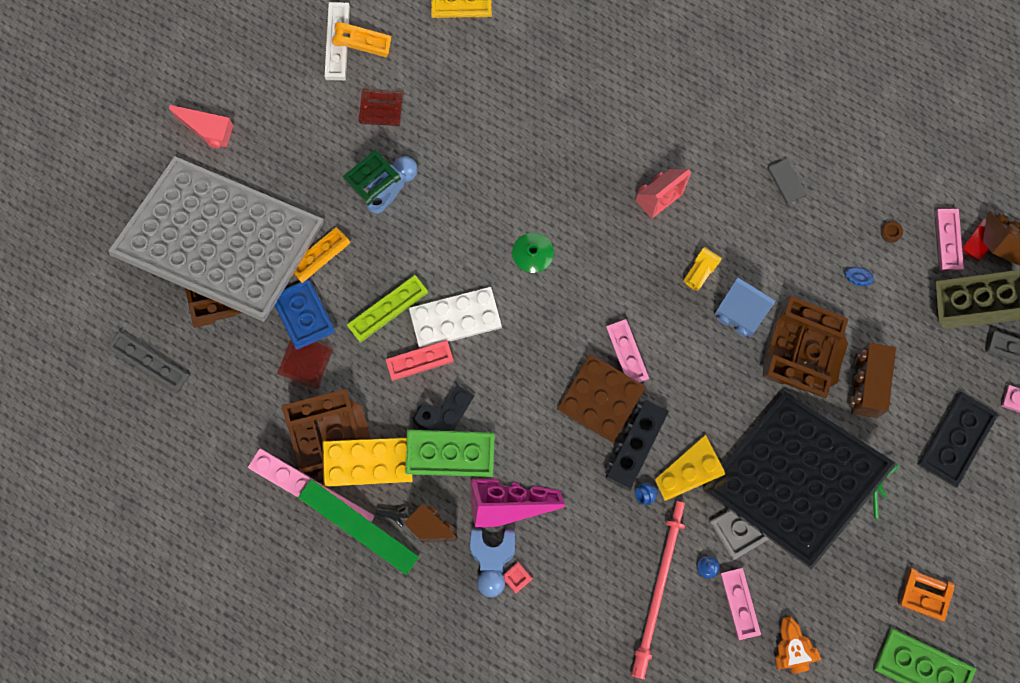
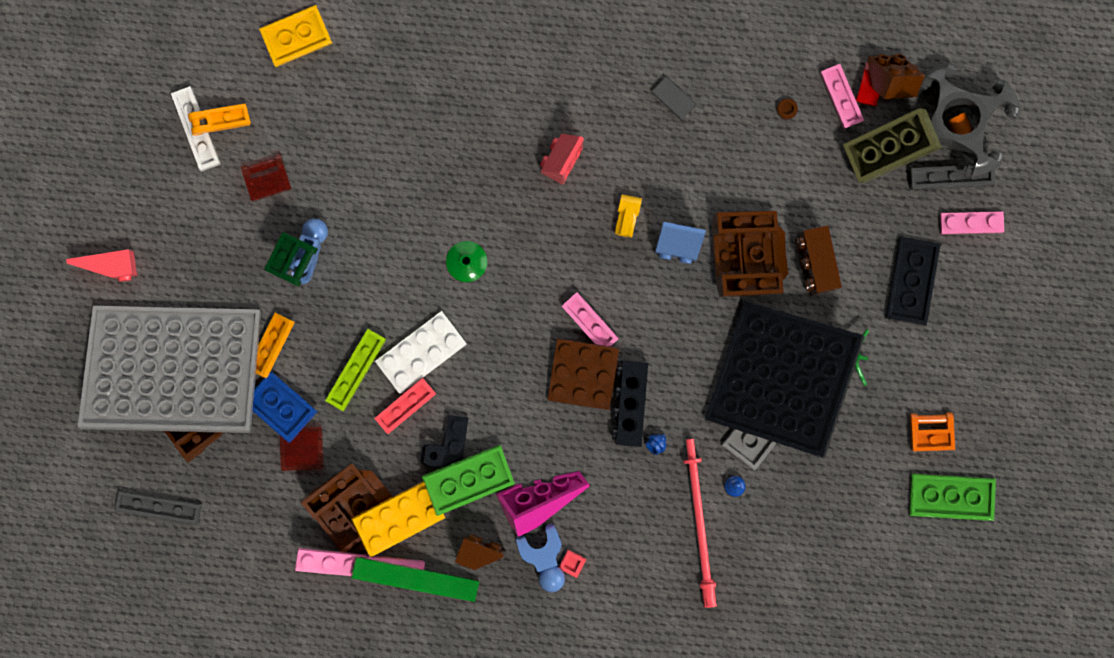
camera: 25 degrees left, 10 degrees up
(393, 514) = (439, 553): black bar -> none
(690, 470) = (687, 407): yellow wing -> none
(740, 604) = (774, 506): bright pink plate -> none
(794, 648) = (835, 526): orange rock -> none
(859, 276) = (772, 165): blue piece -> none

